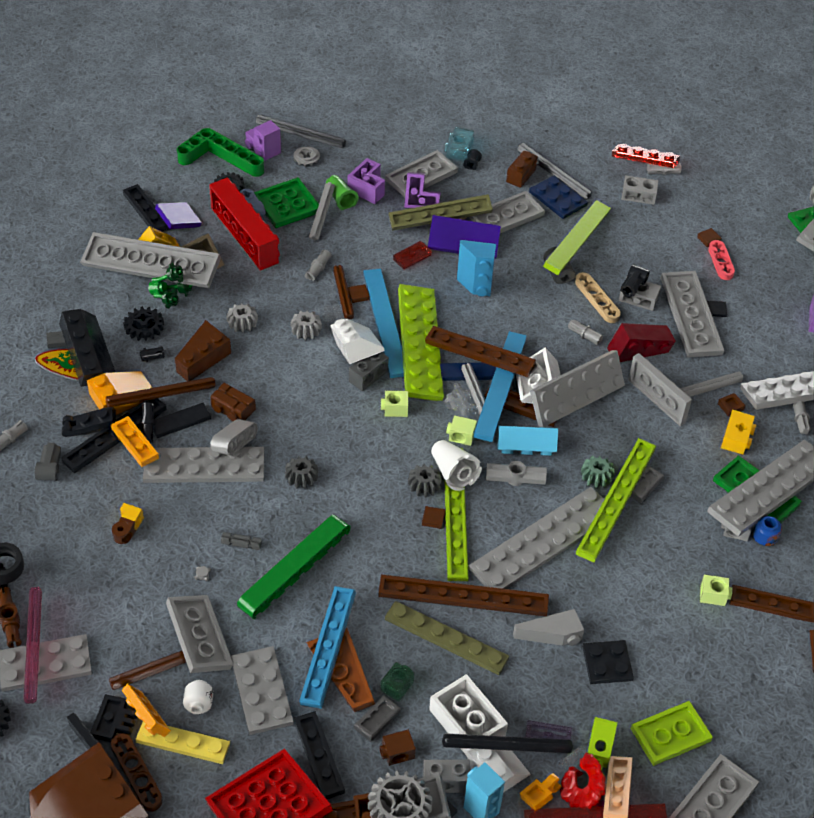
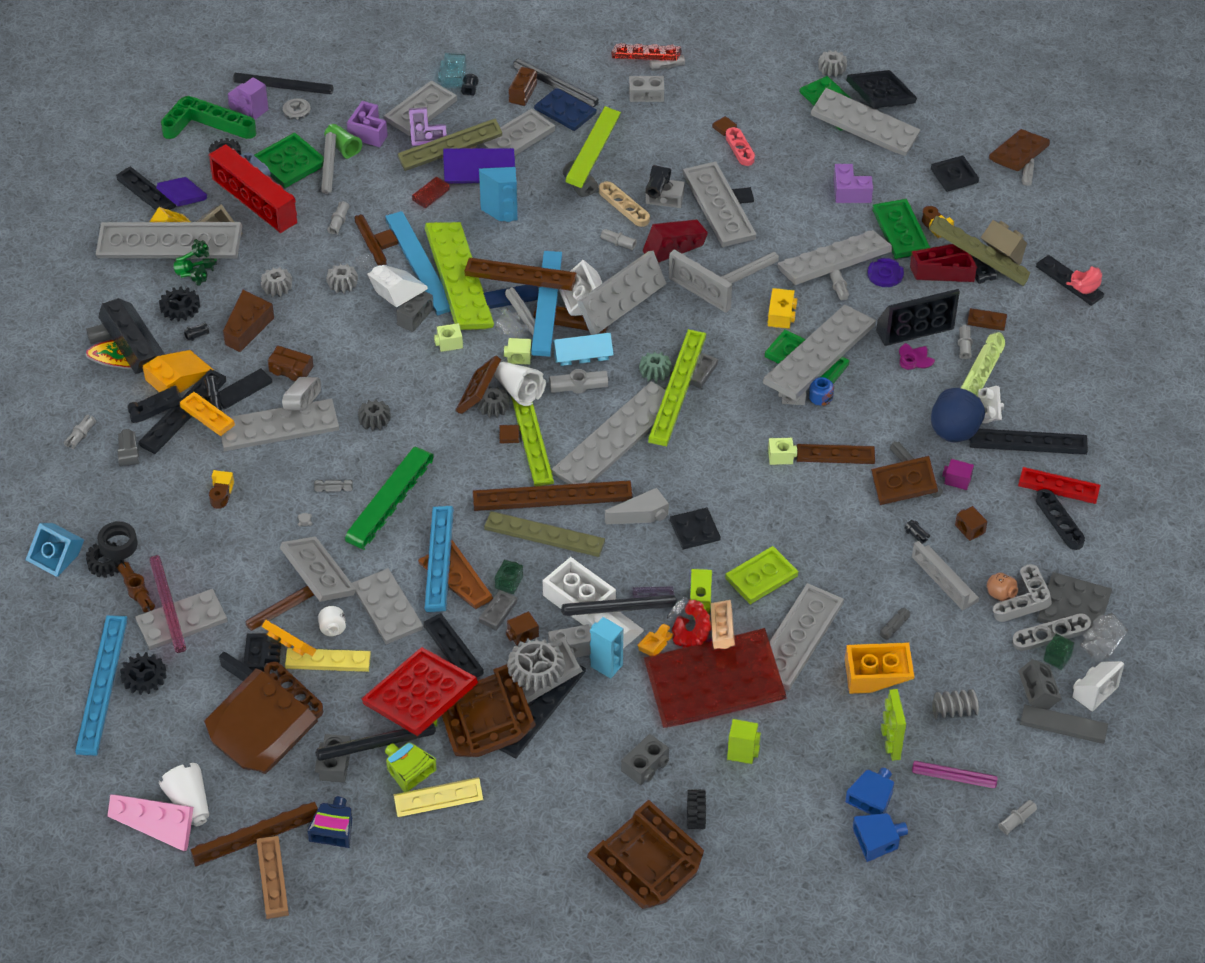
camera: 10 degrees left, 0 degrees up
(159, 392) = (217, 364): reddish brown axle -> none
(412, 459) = (478, 384): none -> reddish brown tile
(731, 403) = (769, 282): reddish brown plate -> none

